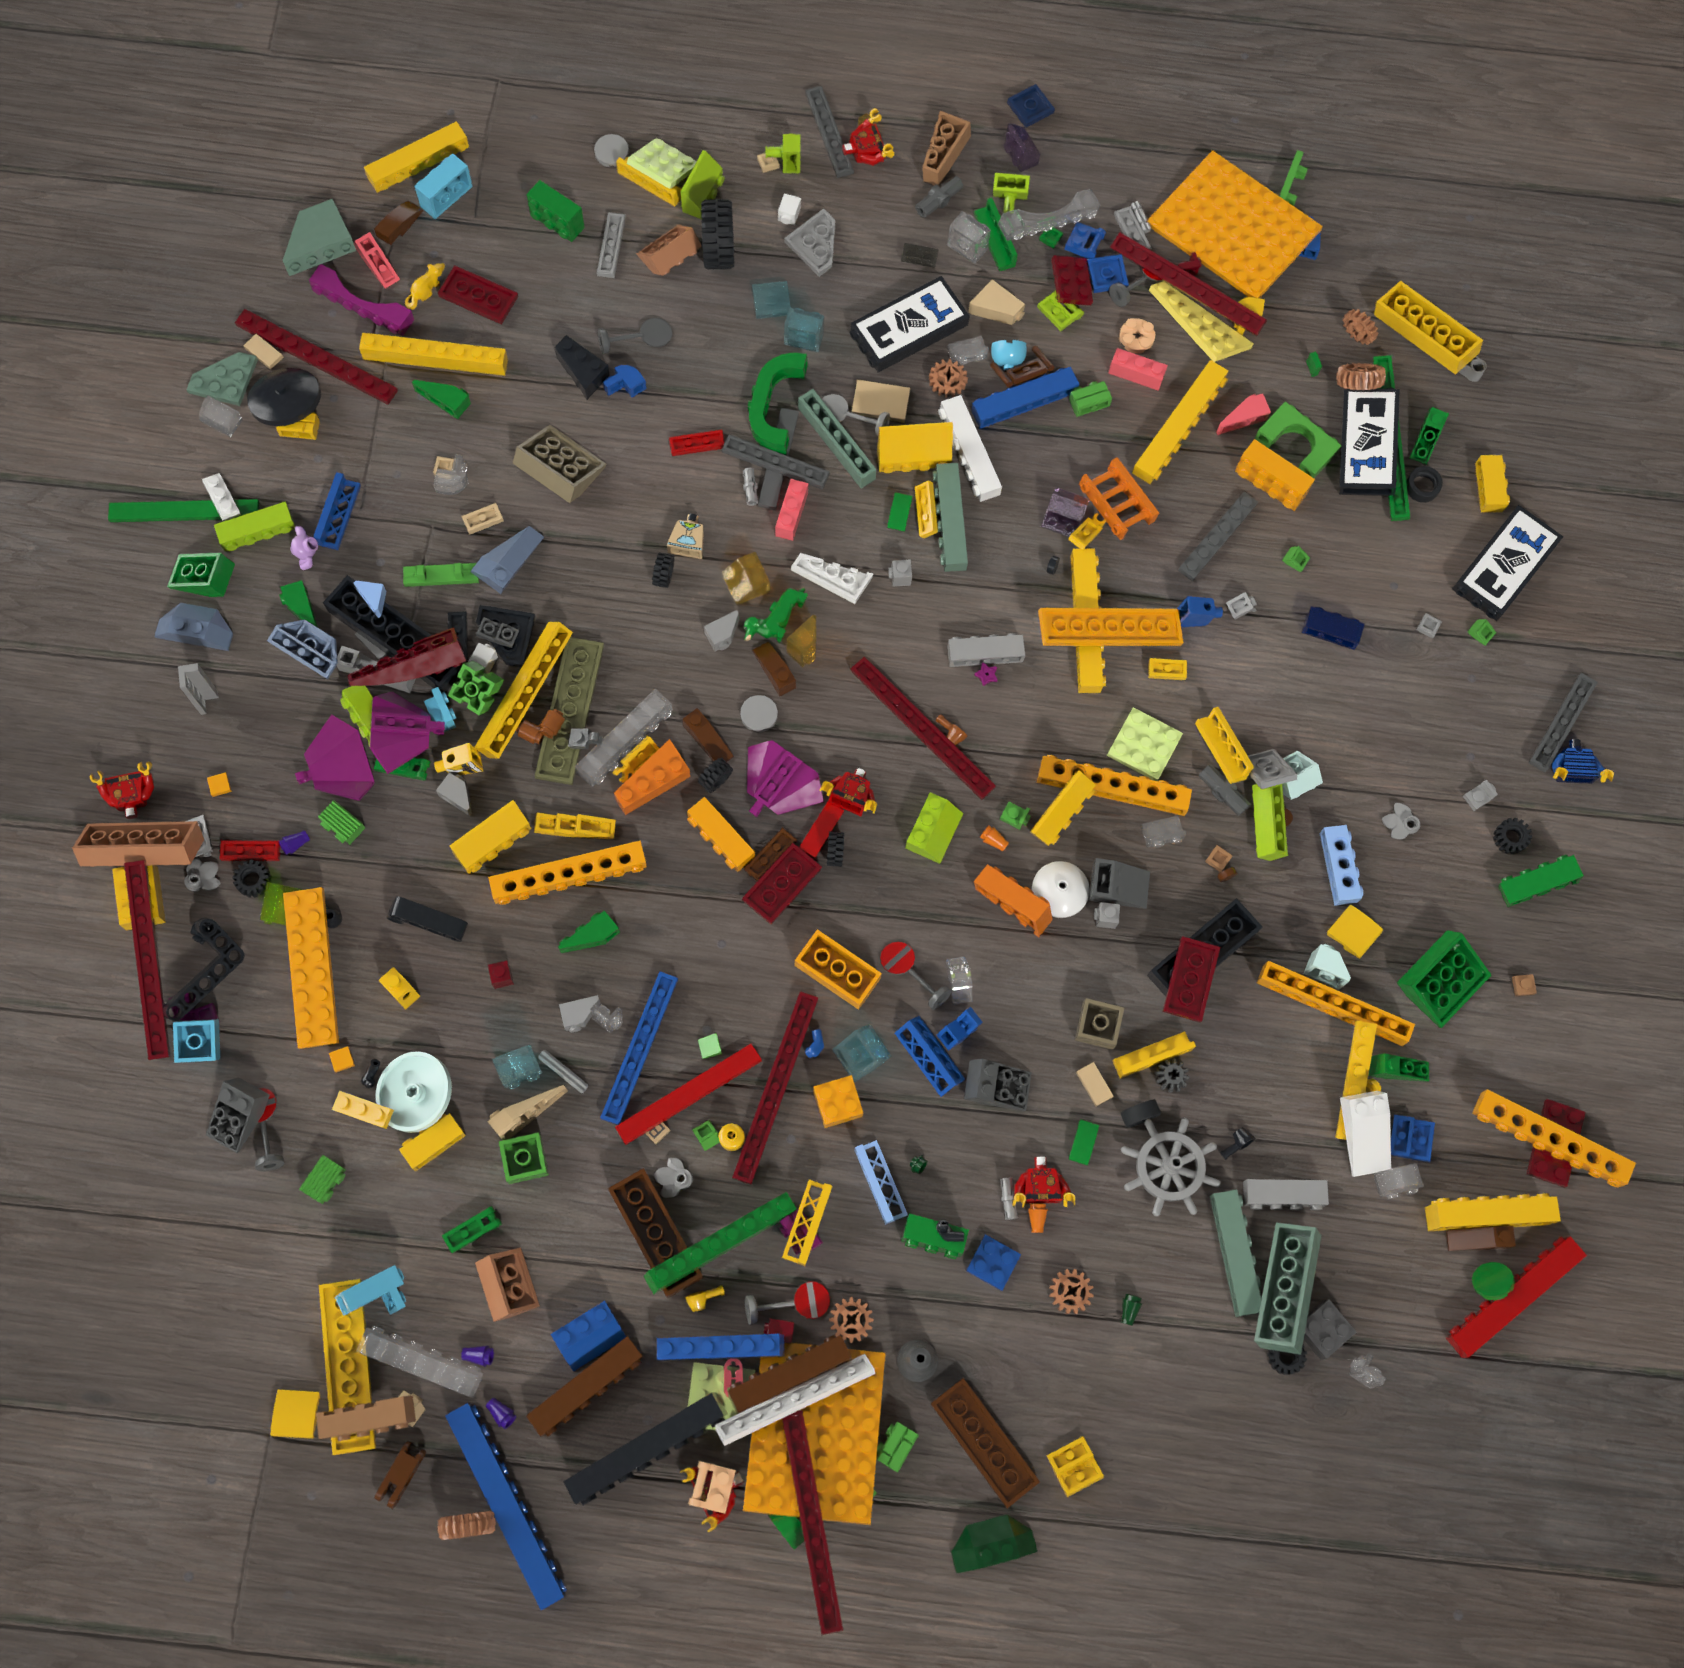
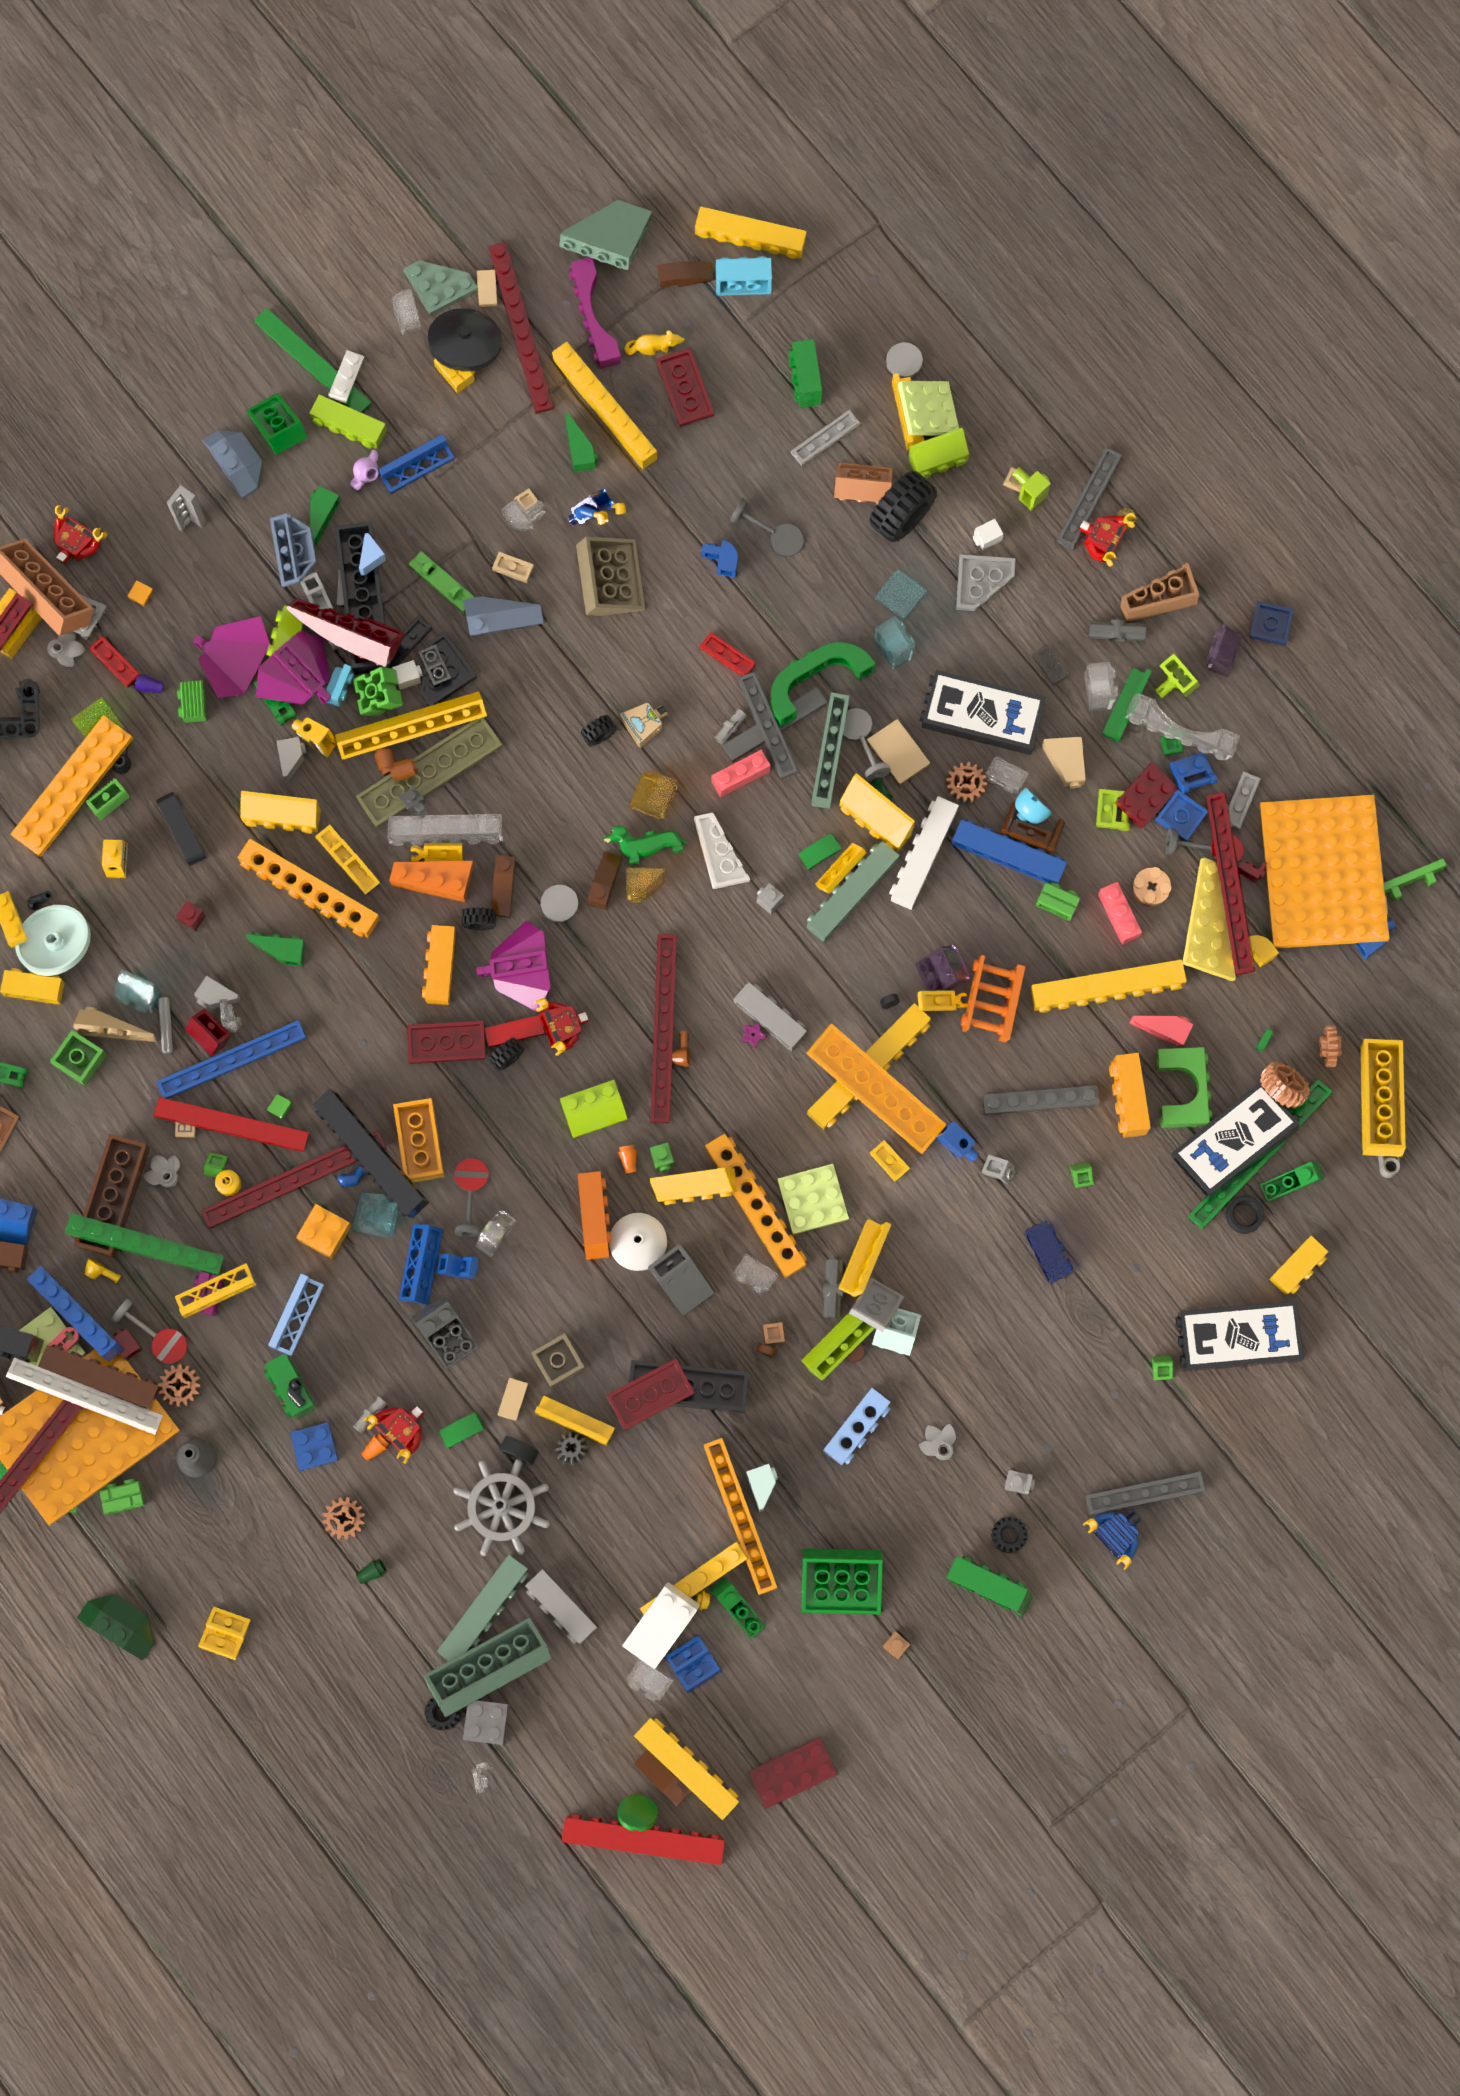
camera: 50 degrees right, 5 degrees up
(243, 871) = (95, 673): black tyre -> none
(341, 1059) = (31, 870): light orange tile -> none
(349, 950) = (107, 799): none -> bright green brick
(376, 260) = (637, 291): coral slope -> none
(499, 424) = (594, 507): none -> torso
(582, 365) = (701, 519): black wedge -> none
(602, 1043) = (207, 1032): none -> dark red brick
(721, 631) = (595, 817): light grey slope -> none
(769, 854) = (461, 1012): reddish brown tile -> none
(816, 1010) = (370, 1153): none -> black brick
(918, 1164) = (333, 1329): dark green plate -> none
(985, 1443) = (182, 1555): reddish brown plate -> none
(1107, 915) = (647, 1292): light grey brick -> none
(1141, 217) = (1260, 795): light grey axle -> none
(1242, 1139) = (572, 1541): black bar -> none
(1355, 931) = (814, 1483): yellow slope -> none
(1429, 625) = (1126, 1323): light grey tile -> none
(1621, 1166) = (814, 1833): light orange brick -> none

